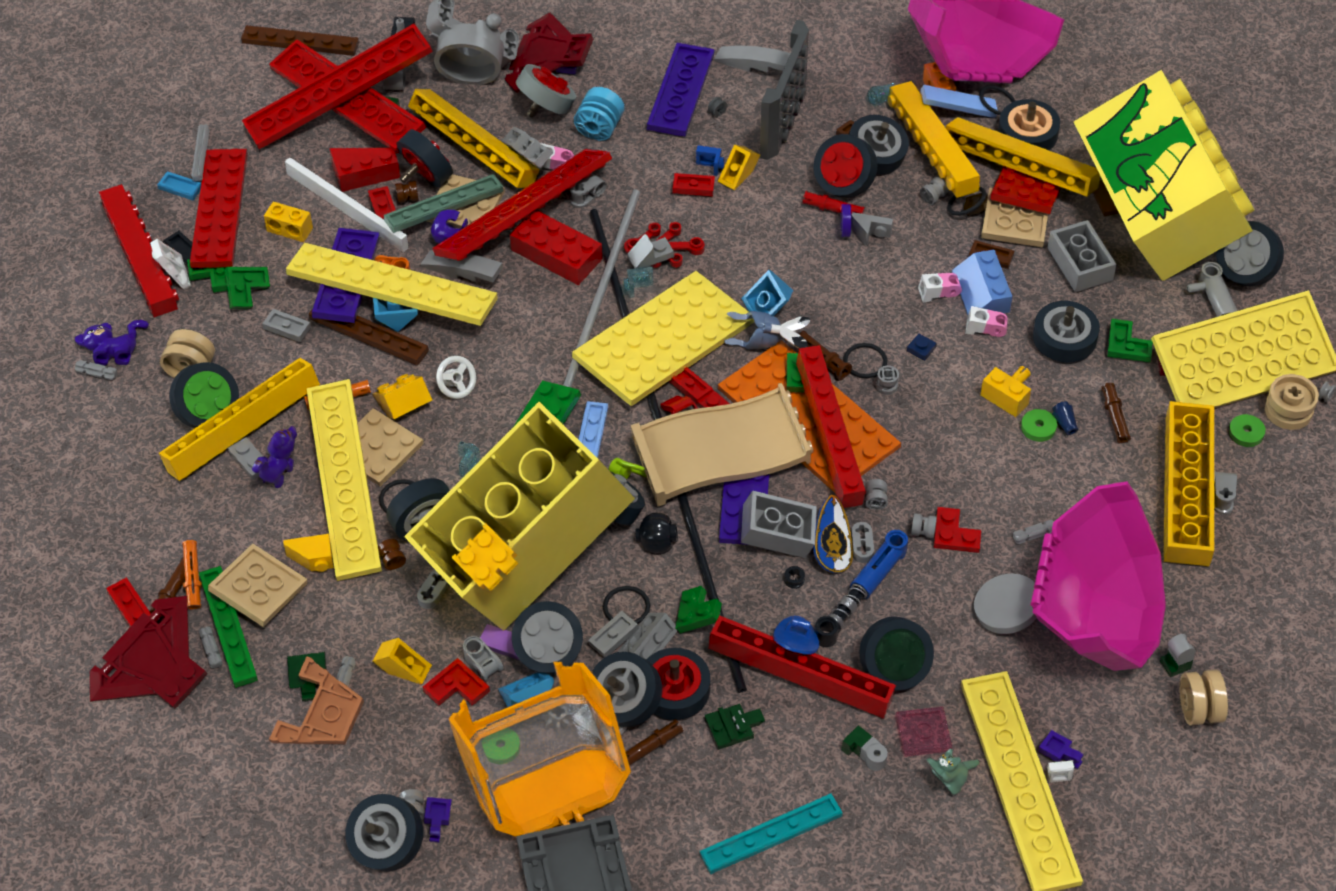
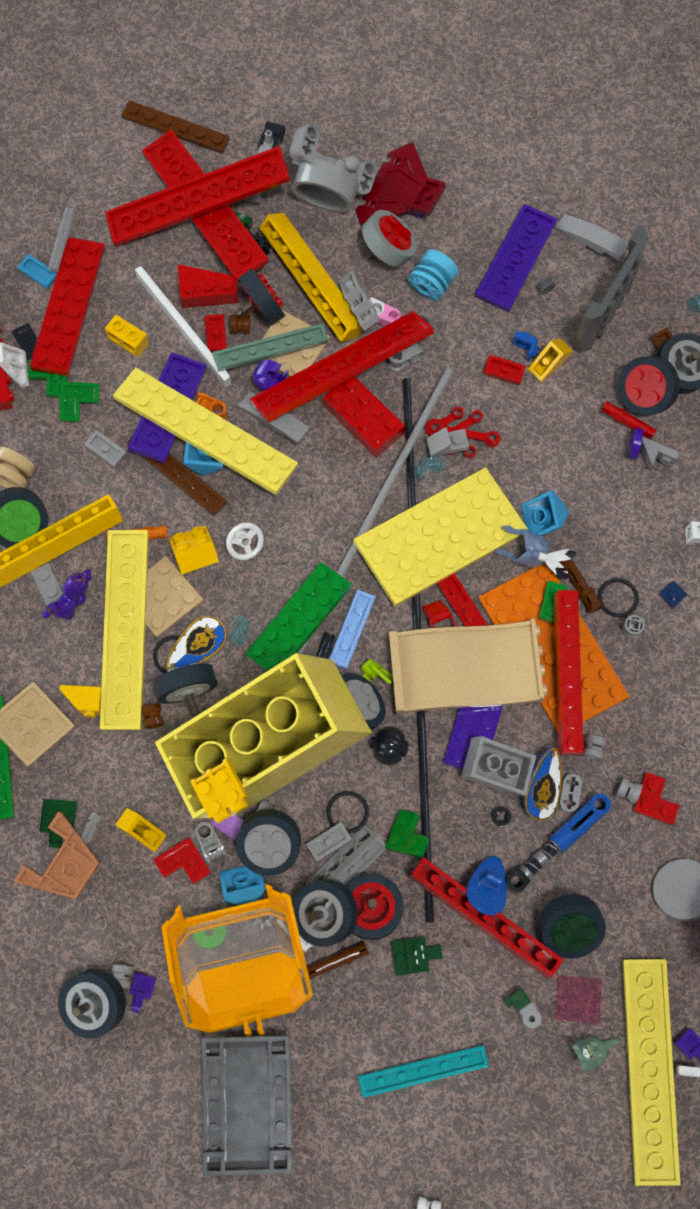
camera: 10 degrees right, 20 degrees up
(431, 463) = (198, 642): none -> shield

